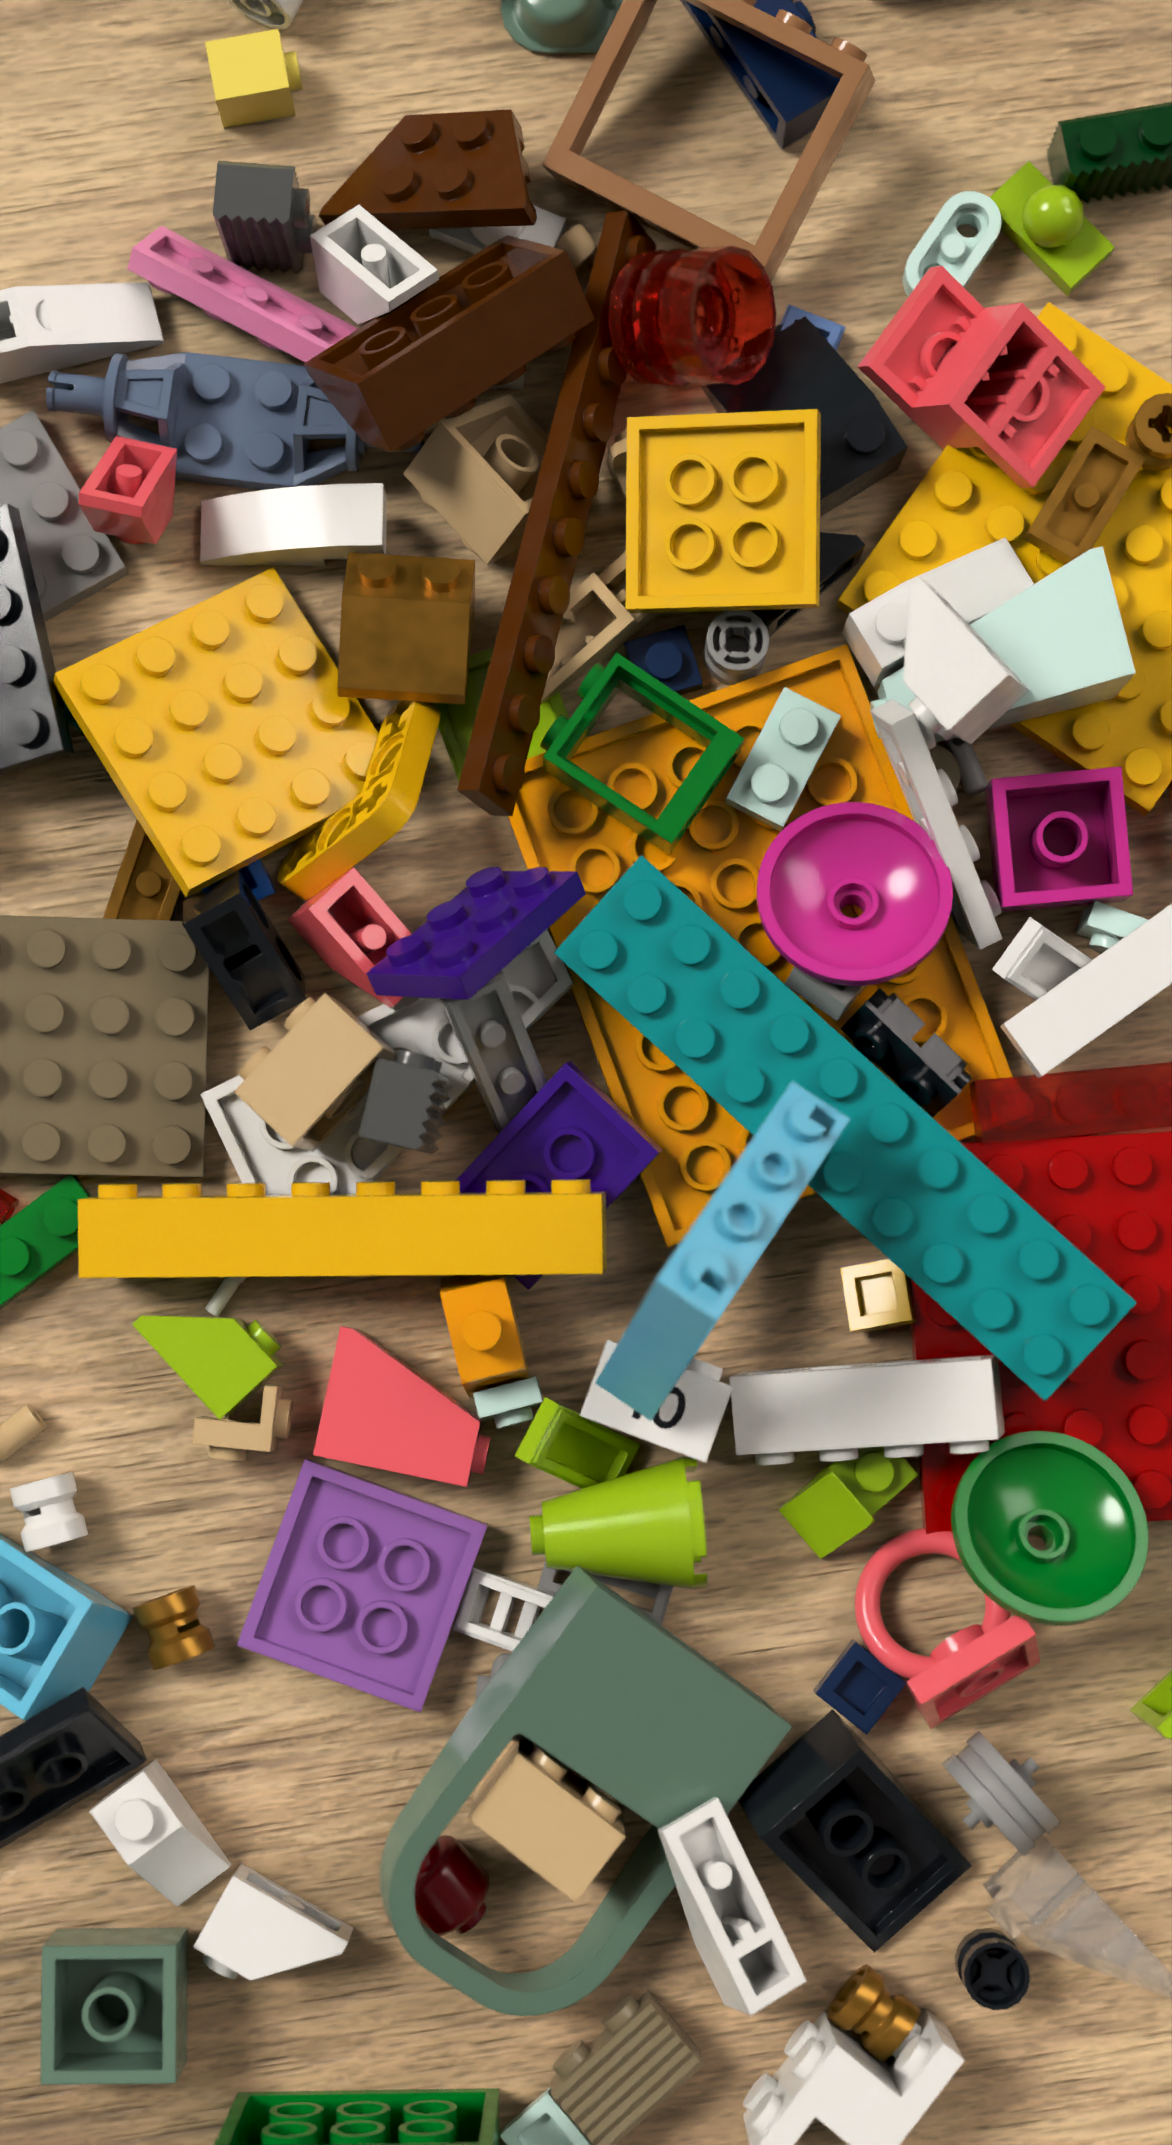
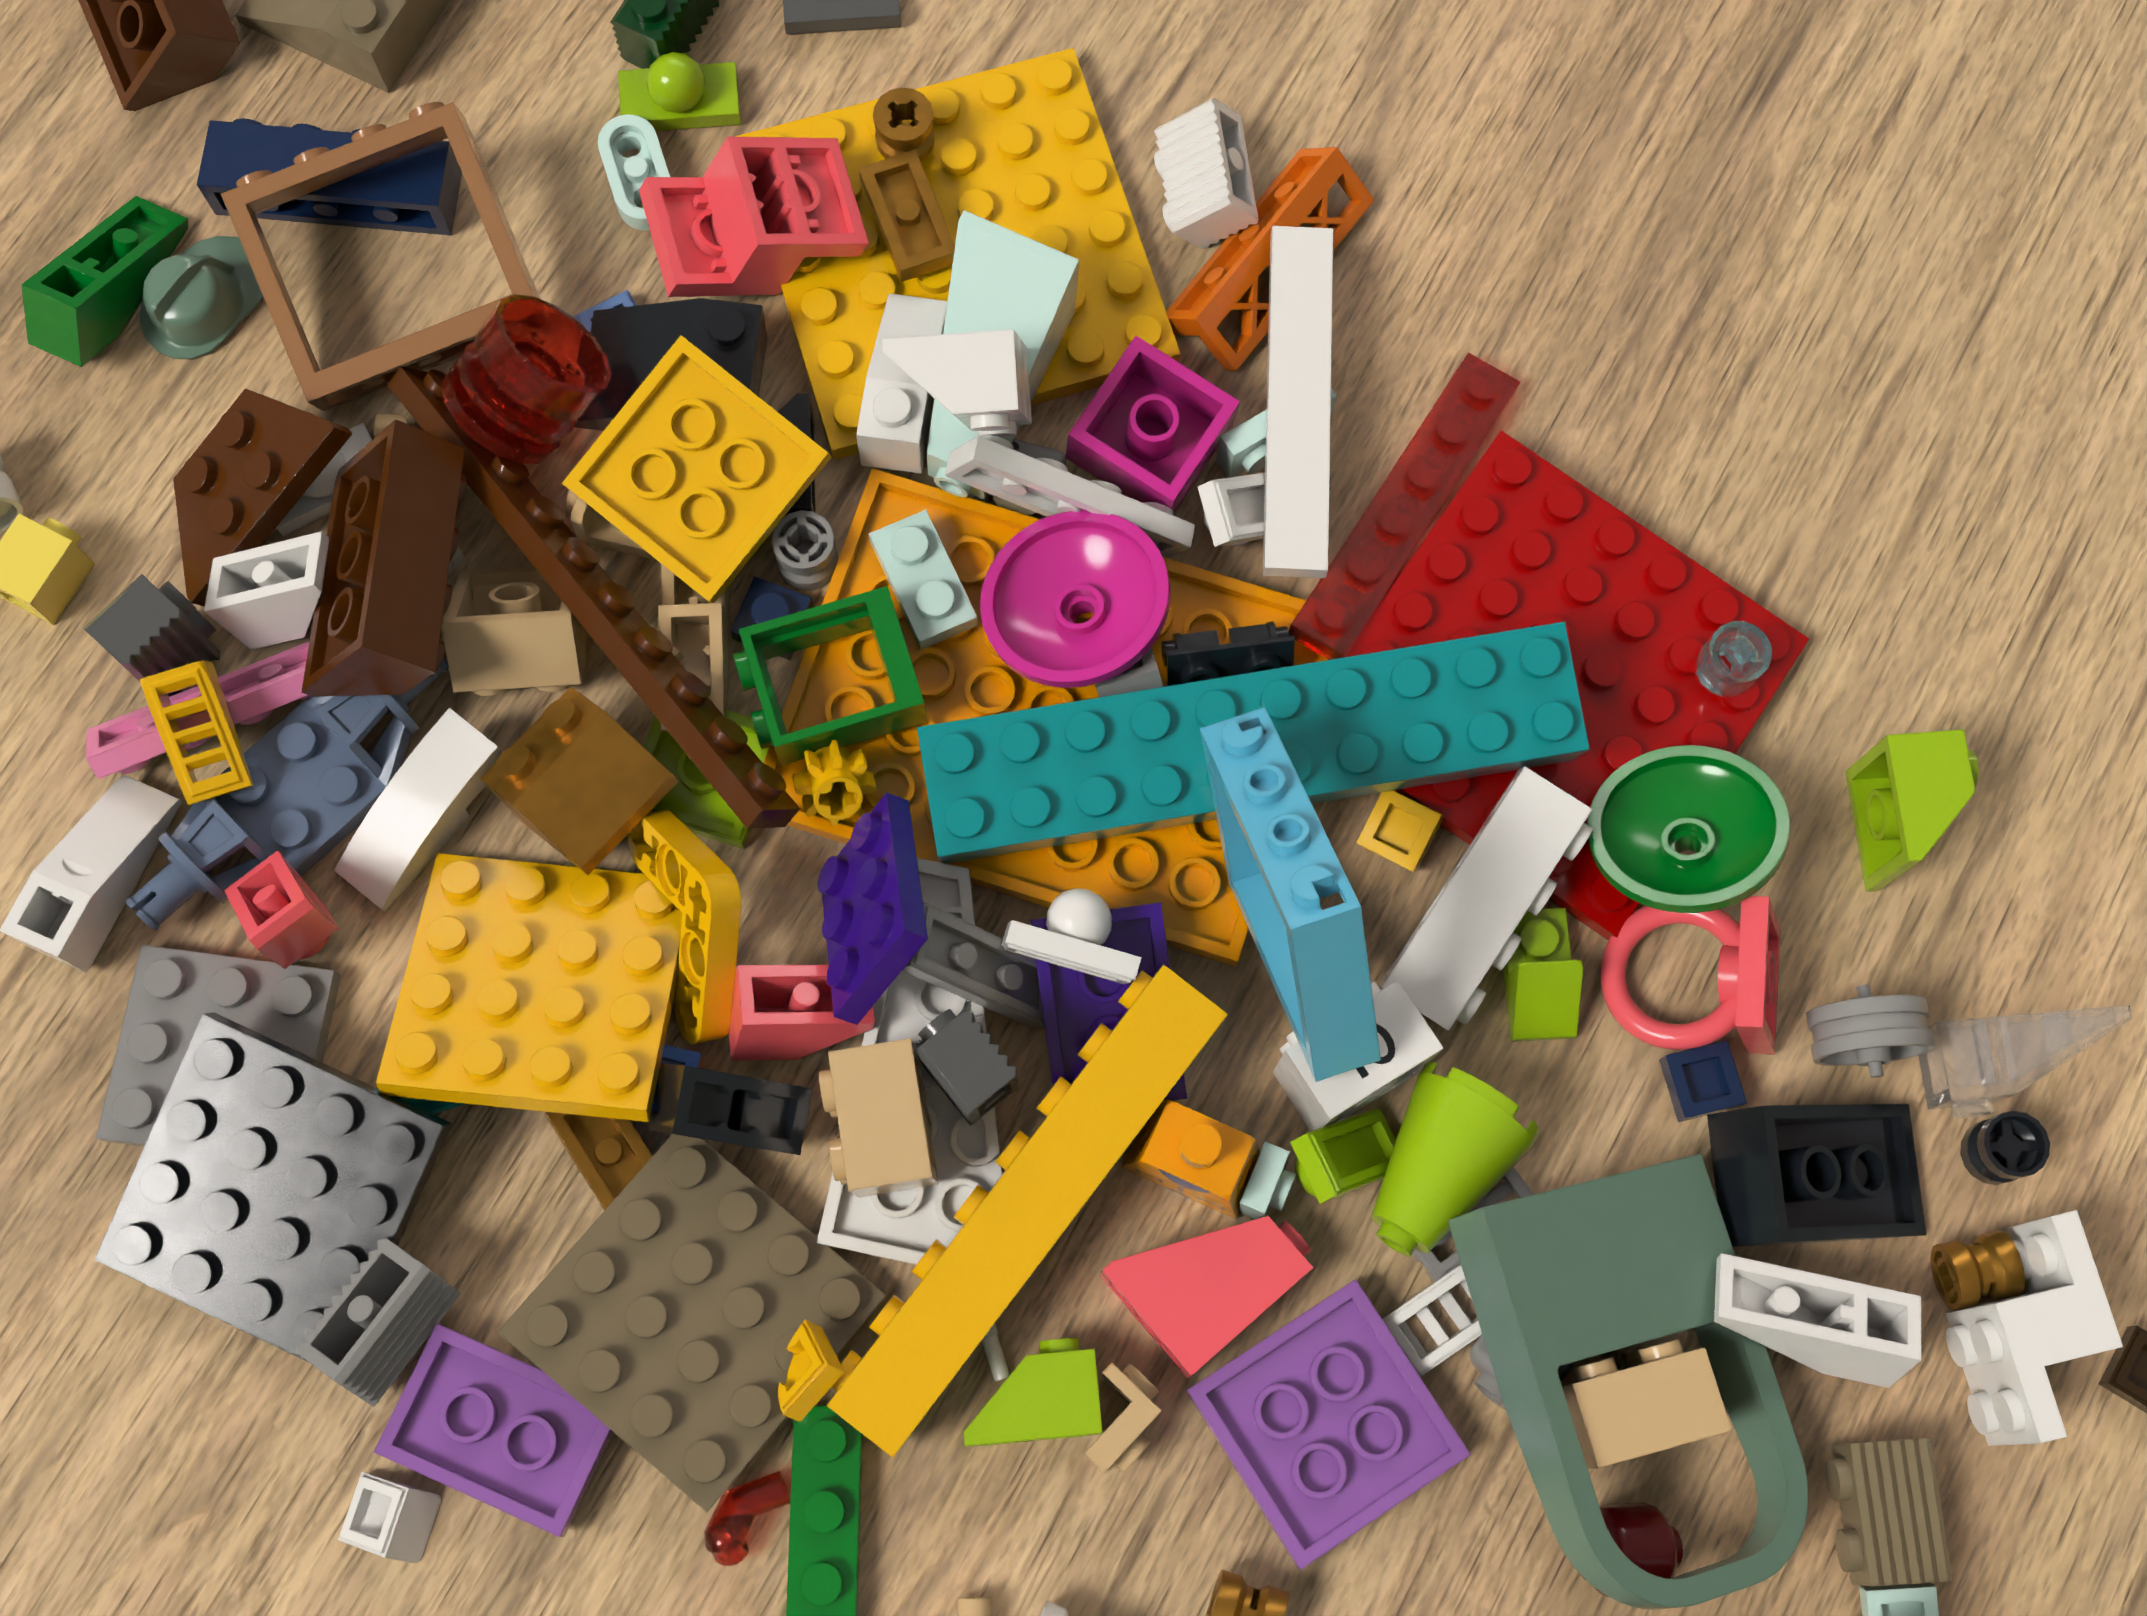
camera: 55 degrees left, 10 degrees down
(96, 1167) = (810, 1372): none -> yellow tile
(246, 304) = (164, 715): none -> yellow slope
(556, 824) = (818, 784): none -> yellow gear
(570, 1109) = (1076, 929): none -> white tile

